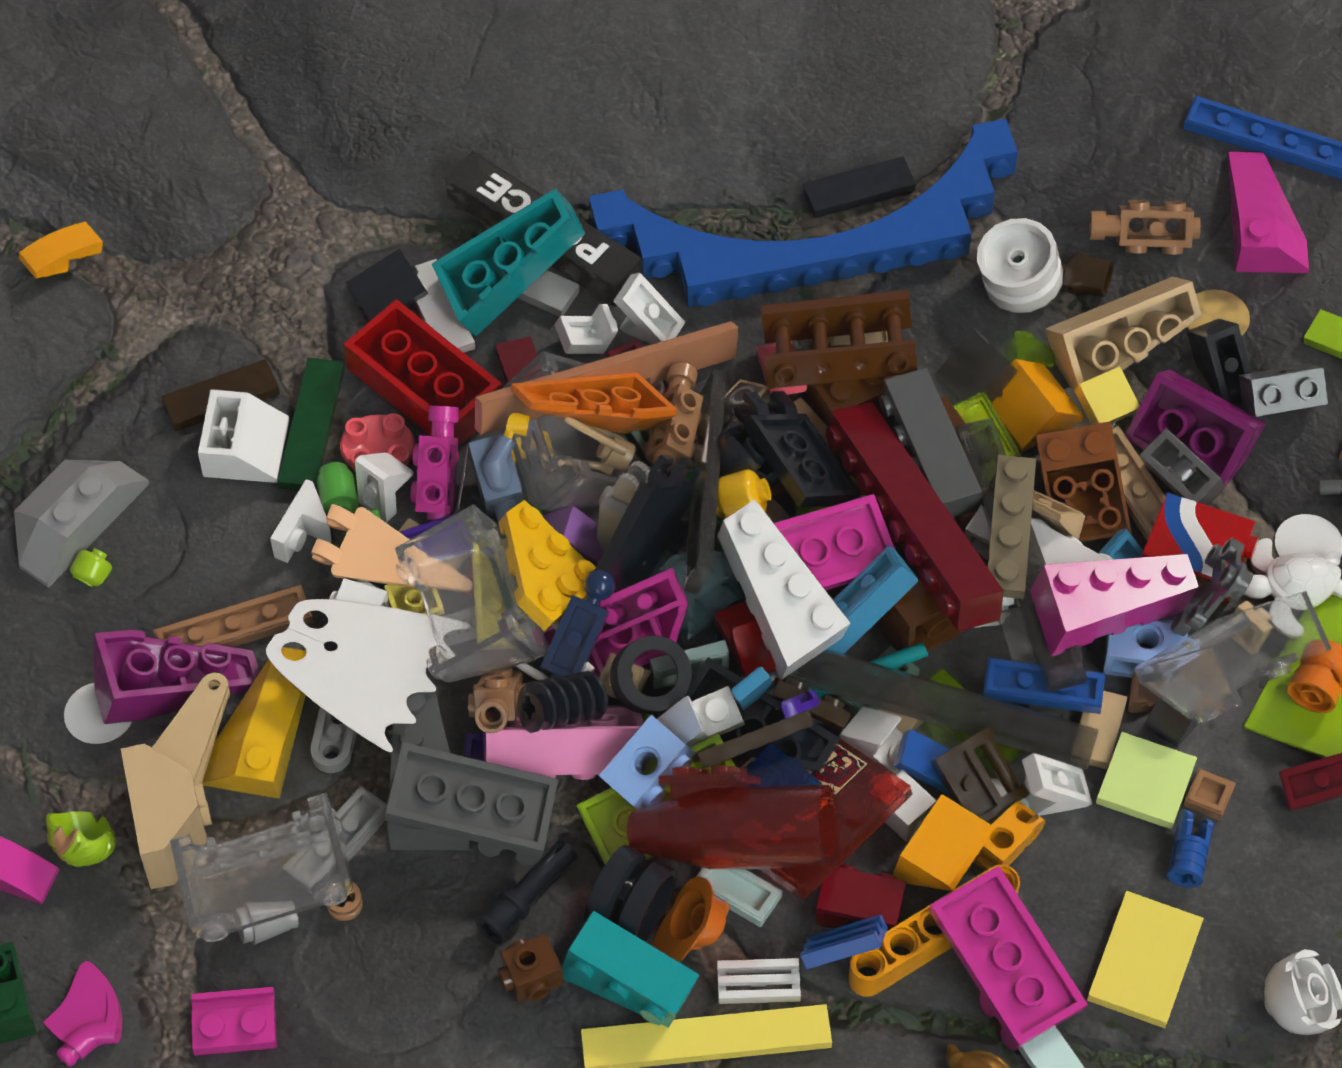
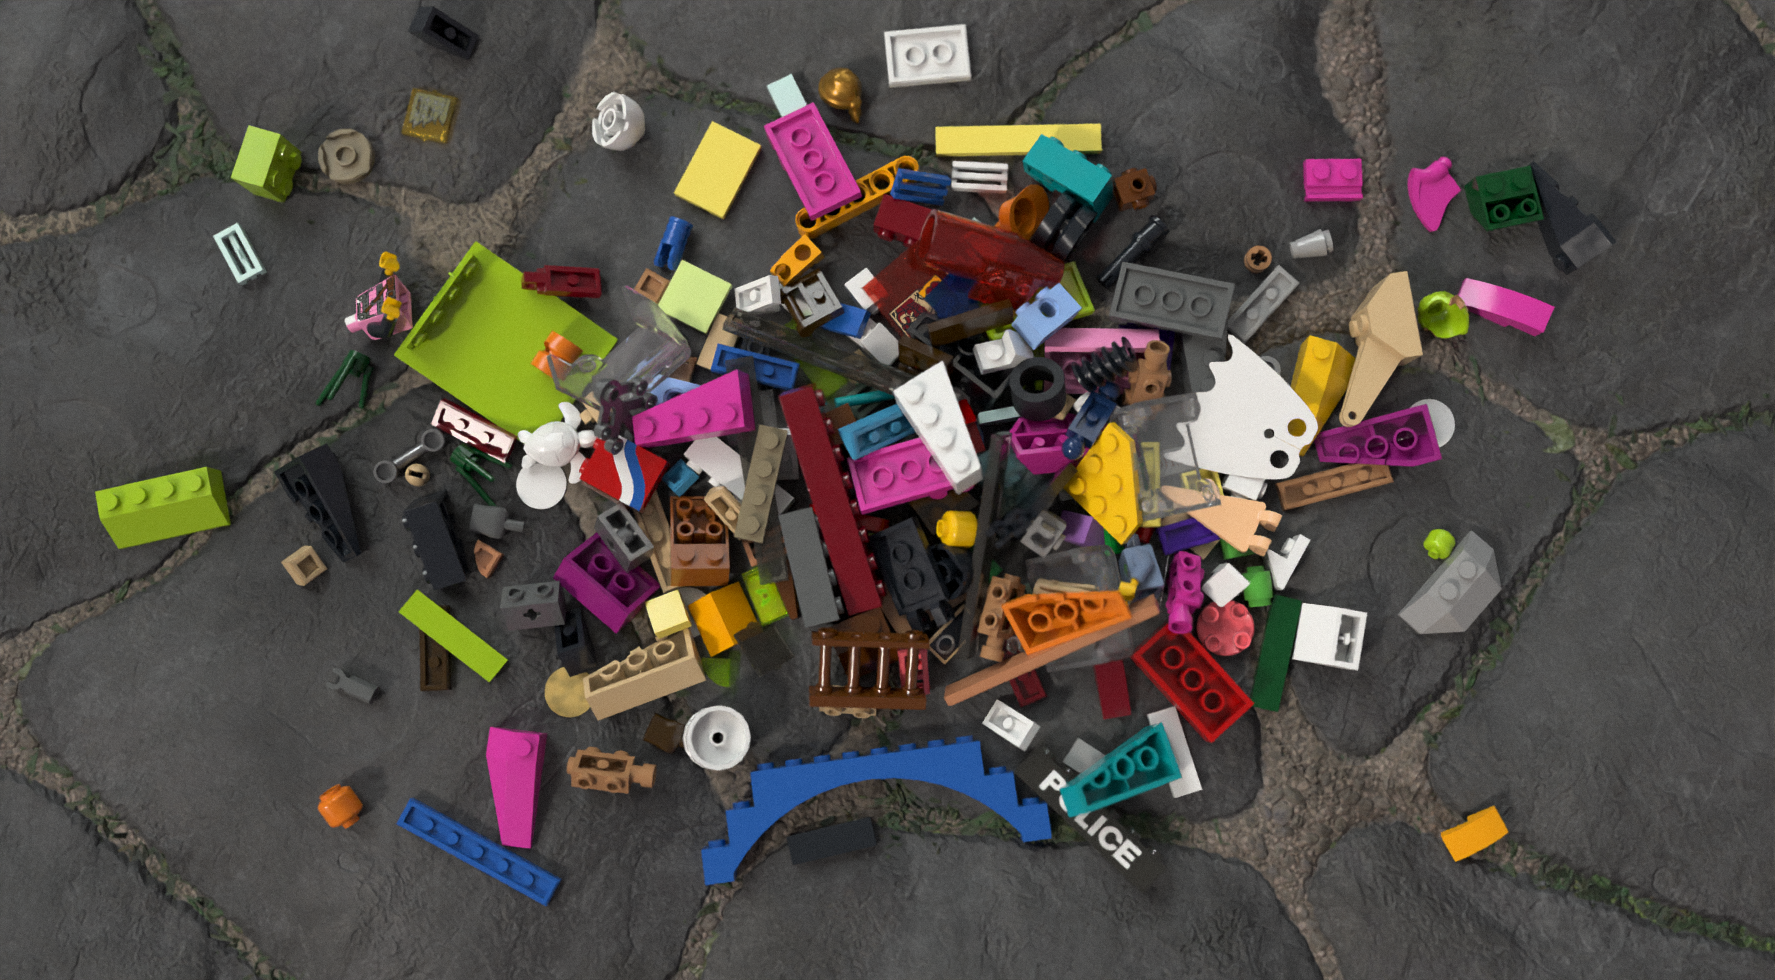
camera: 170 degrees left, 25 degrees up
(190, 403) = (1344, 686): dark brown tile -> none
(264, 873) = (1319, 261): clear windscreen -> none
(385, 282) = (1214, 774): black piece -> none
(587, 333) = (1060, 713): white bracket -> none
(752, 688) = (967, 363): dark azure tile -> none
(799, 703) = (936, 341): dark purple tile -> none
(942, 846) = (845, 247): light orange slope -> none

